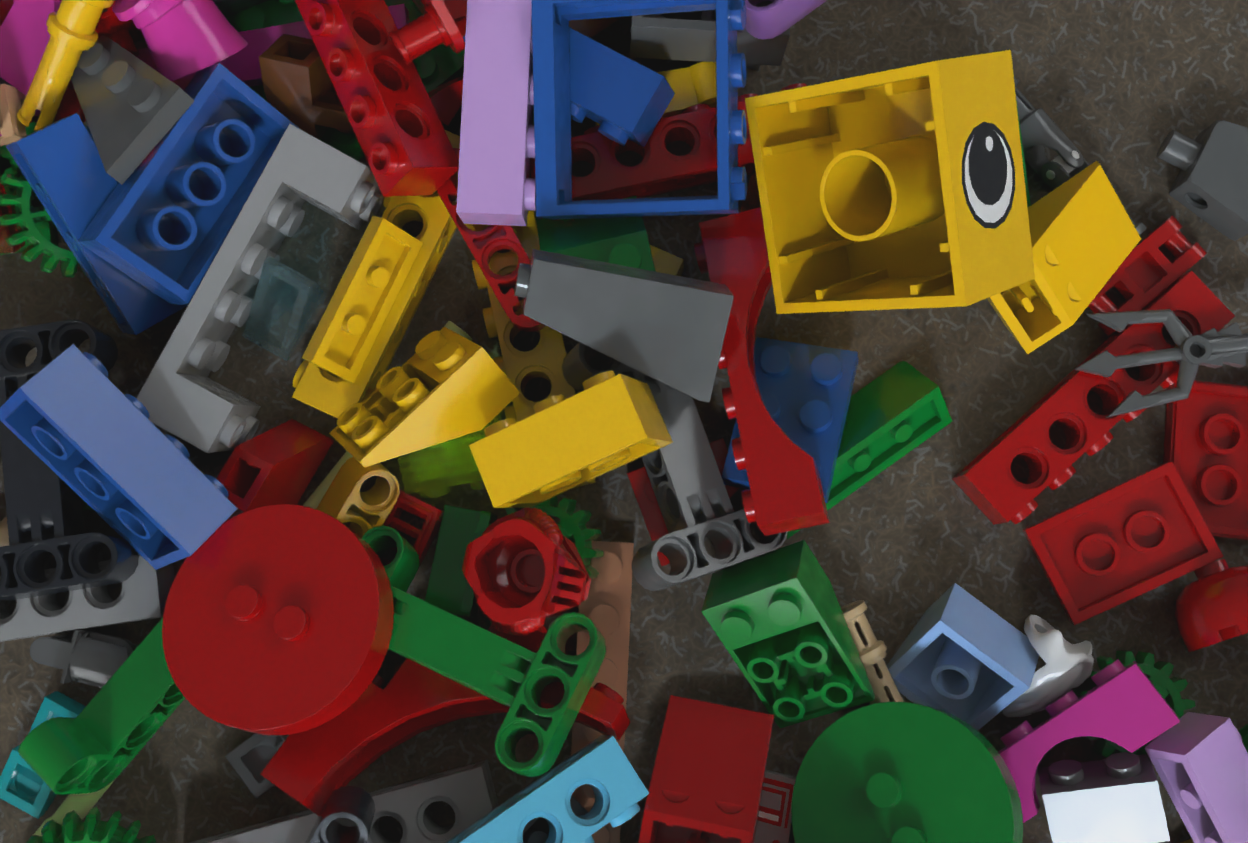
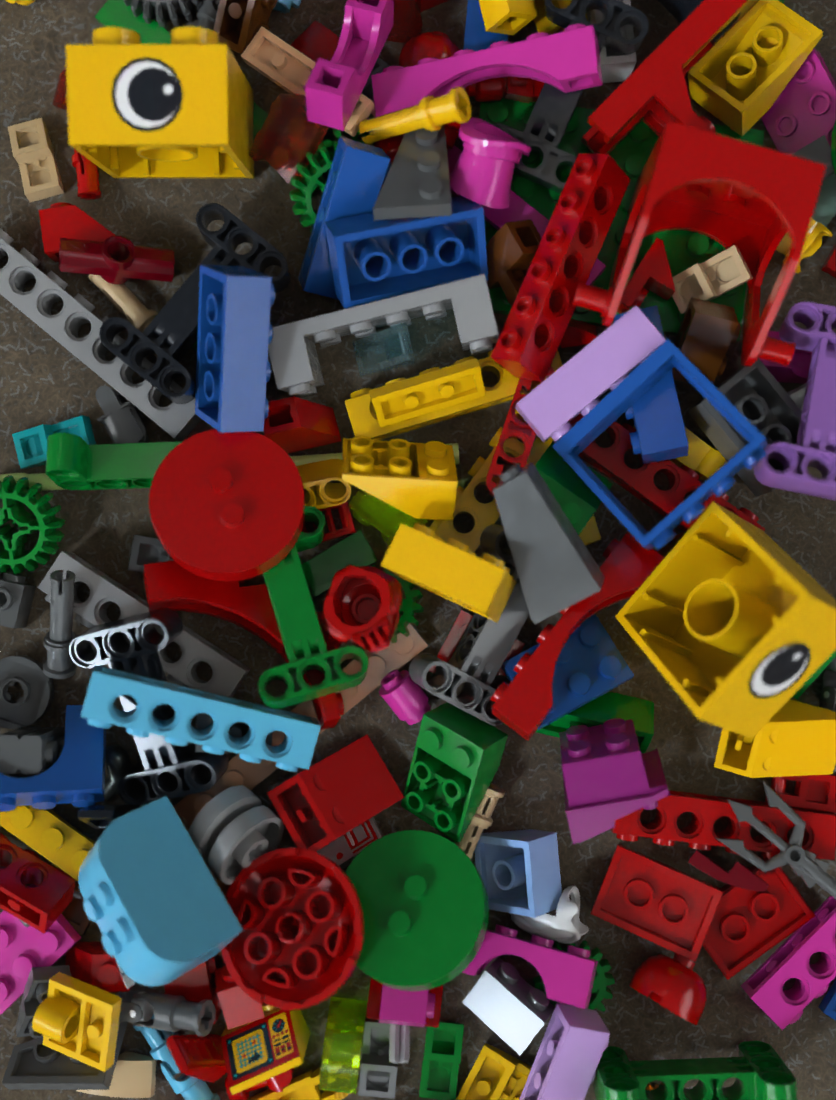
camera: 50 degrees right, 5 degrees up
(665, 616) = (404, 696): none -> dark pink brick
(942, 471) = (607, 776): none -> magenta piece
(1164, 432) = (737, 875): none -> dark red slope

